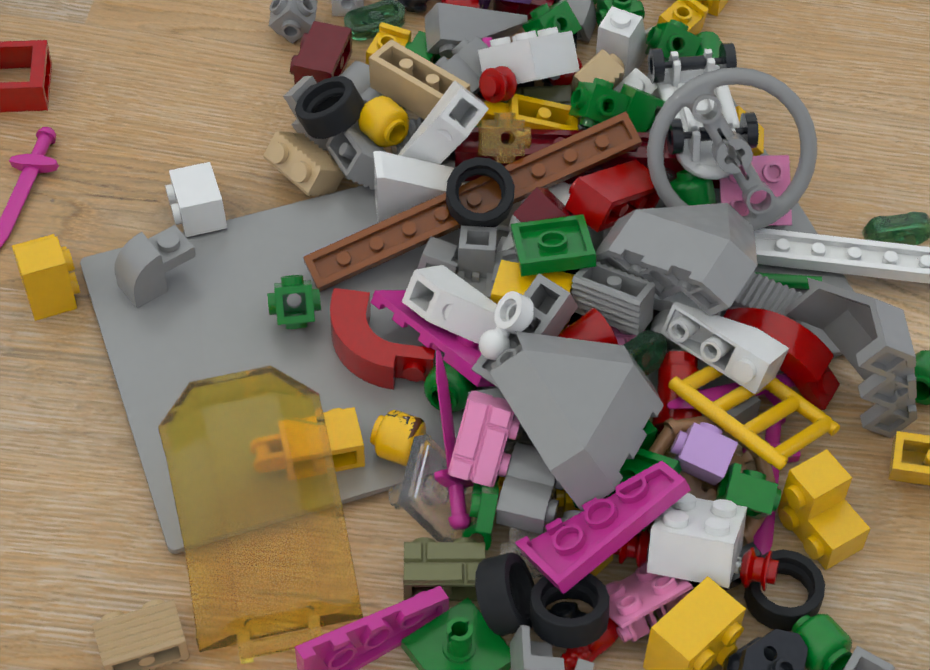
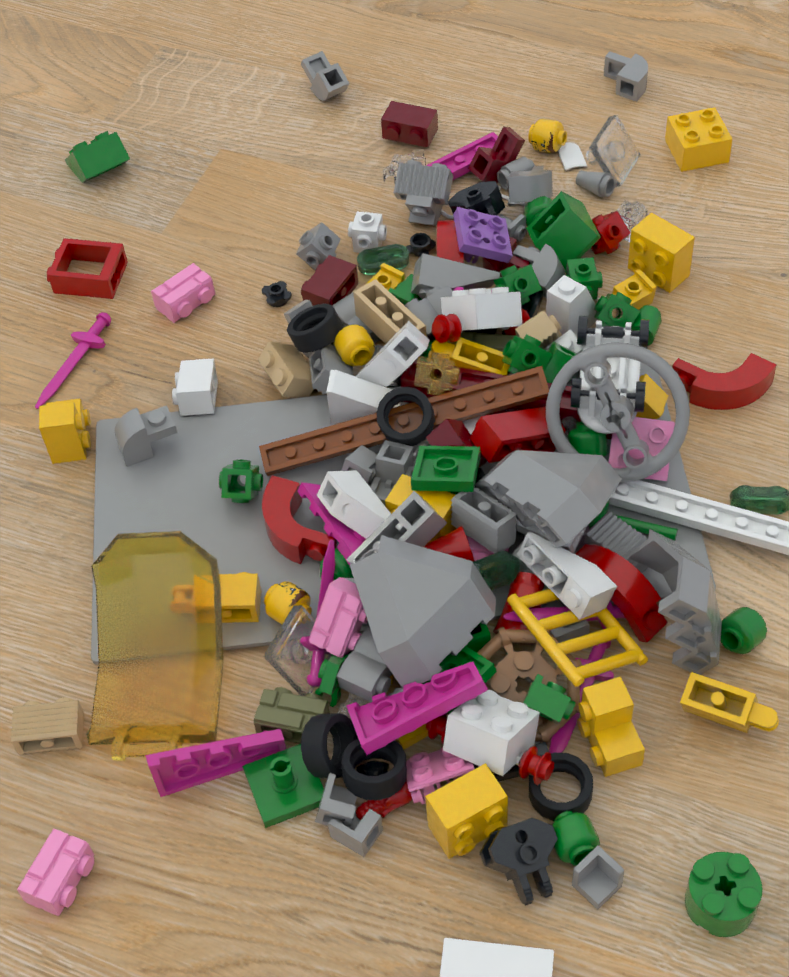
camera: 20 degrees right, 0 degrees up
(140, 90) = (183, 293): none -> bright pink brick
(256, 77) = (277, 294): none -> black plate
(511, 314) = (383, 522): white plate -> none
(704, 452) = (518, 659): lavender brick -> none
(829, 110) = (727, 389): none -> red arch

